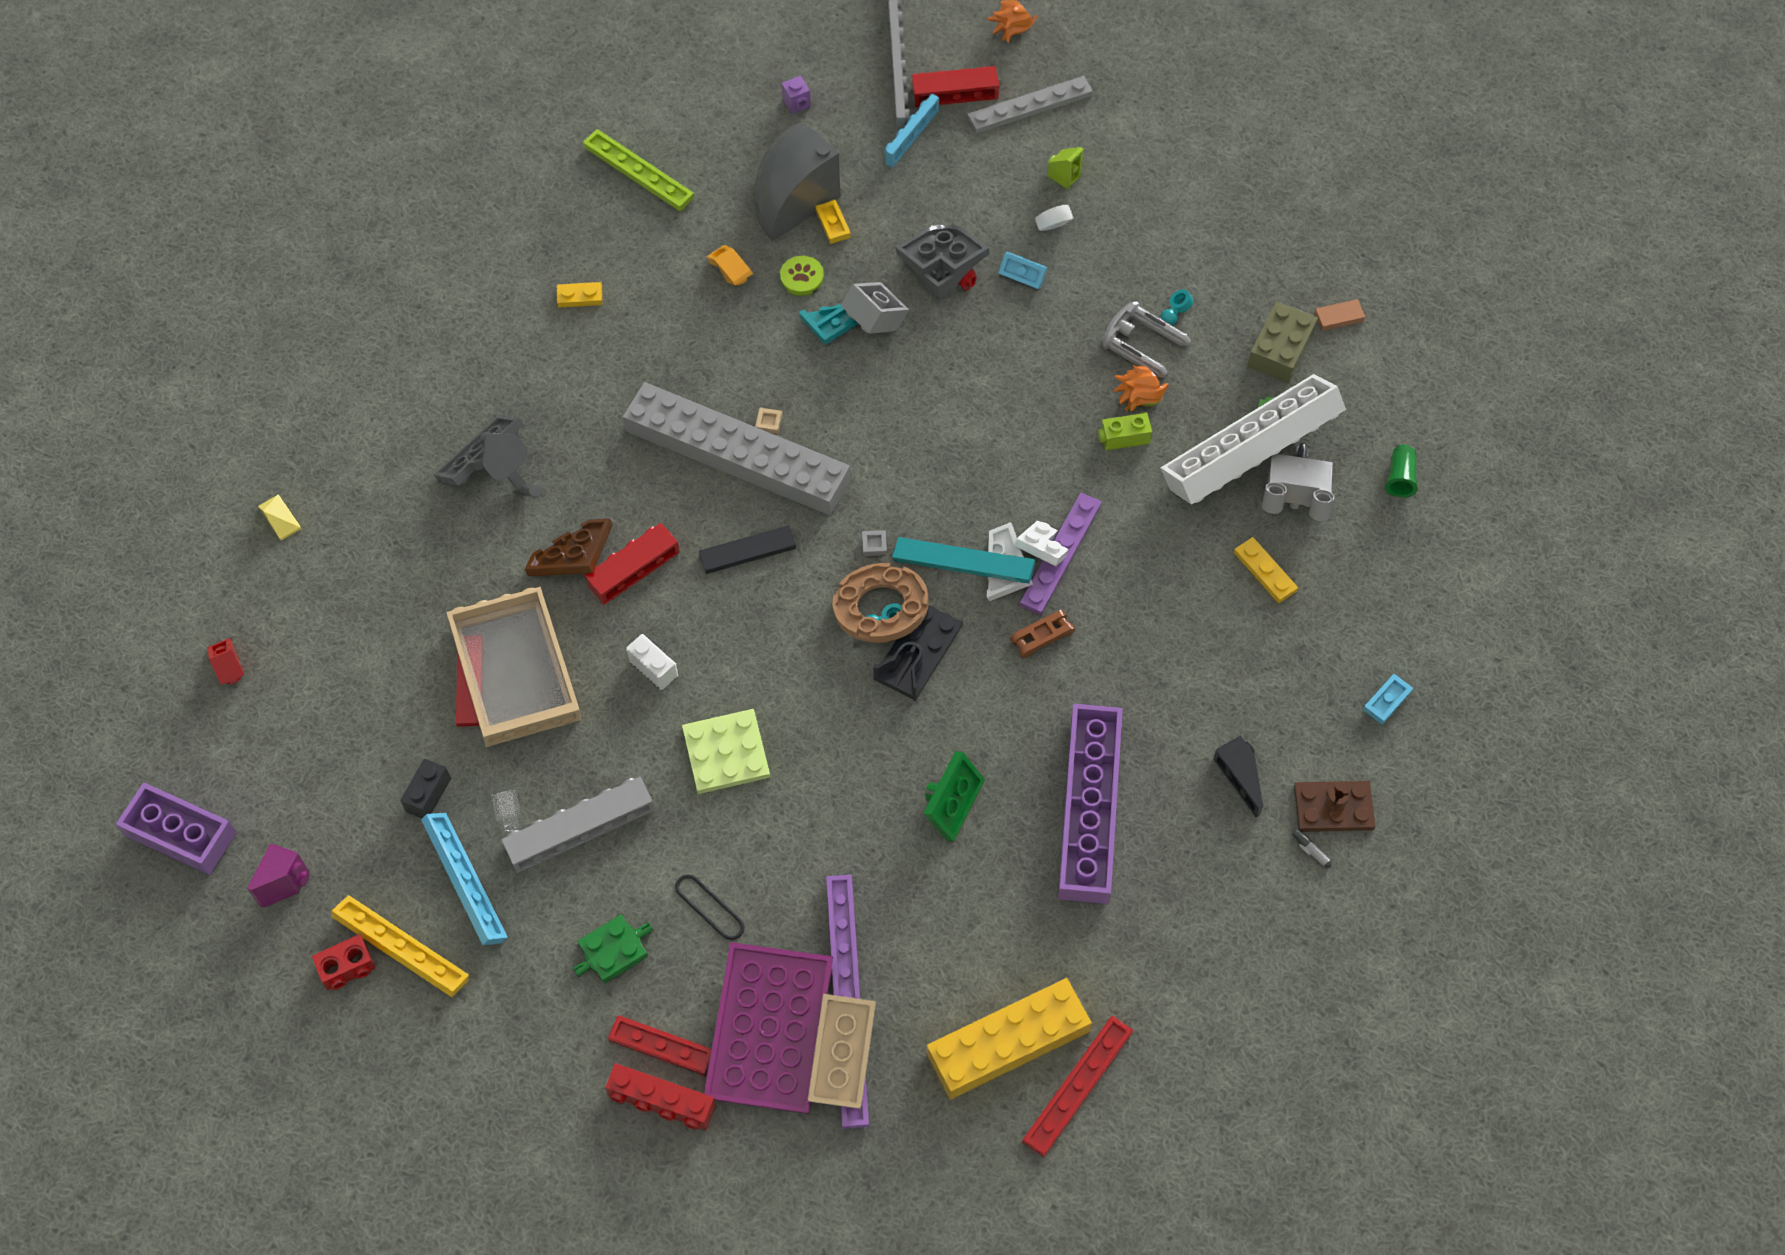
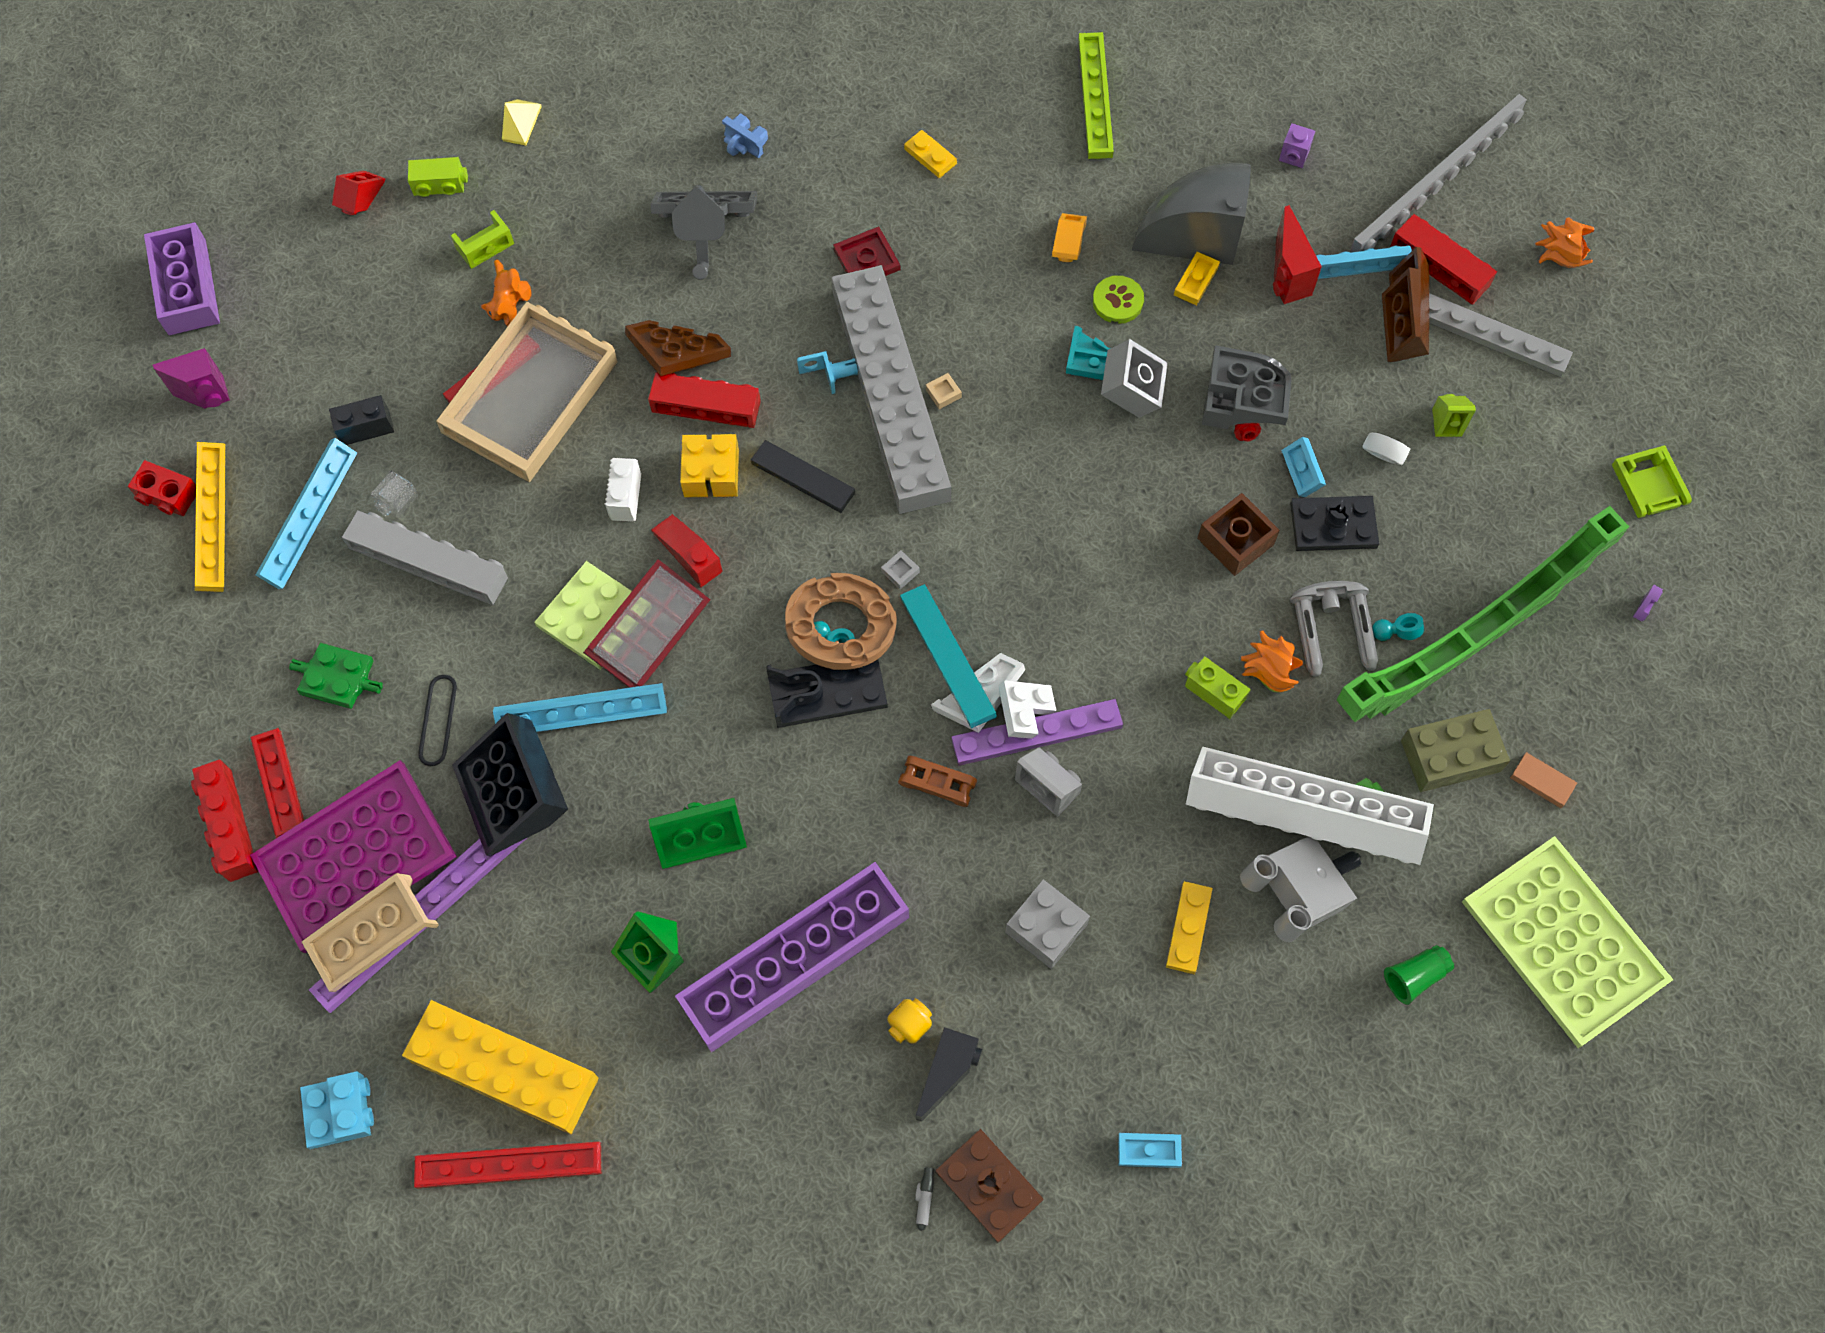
camera: 50 degrees right, 5 degrees up
(270, 601) = (436, 176): none -> lime brick
(357, 609) = (484, 243): none -> lime panel
(417, 620) = (507, 292): none -> orange animal
(448, 391) = (741, 139): none -> medium blue hips
(617, 388) = (867, 251): none -> dark red tile
(683, 594) = (709, 460): none -> yellow piece
(688, 473) = (833, 371): none -> medium azure bracket
(736, 655) = (688, 550): none -> red slope
(770, 721) = (647, 626): none -> clear piece
(792, 808) = (589, 707): none -> medium azure plate
(810, 889) = (509, 784): none -> black slope
(876, 159) = (1295, 261): none -> red slope
(945, 1169) = (336, 1110): none -> medium azure plate
(970, 131) = (1407, 308): none -> reddish brown slope
(1007, 887) = (649, 949): none -> green slope
(1036, 338) = (1238, 534): none -> reddish brown brick
(1074, 285) = (1334, 523): none -> black plate
(1103, 570) = (1047, 780): none -> light grey slope
(1191, 769) = (909, 1021): none -> yellow head
(1197, 643) = (1047, 924): none -> light grey brick
(1209, 111) = (1652, 488): none -> lime container
(1218, 338) = (1397, 684): none -> bright green arch
(1278, 173) = (1647, 602): none -> medium lavender tile
(1447, 383) = (1567, 941): none -> yellowish green plate

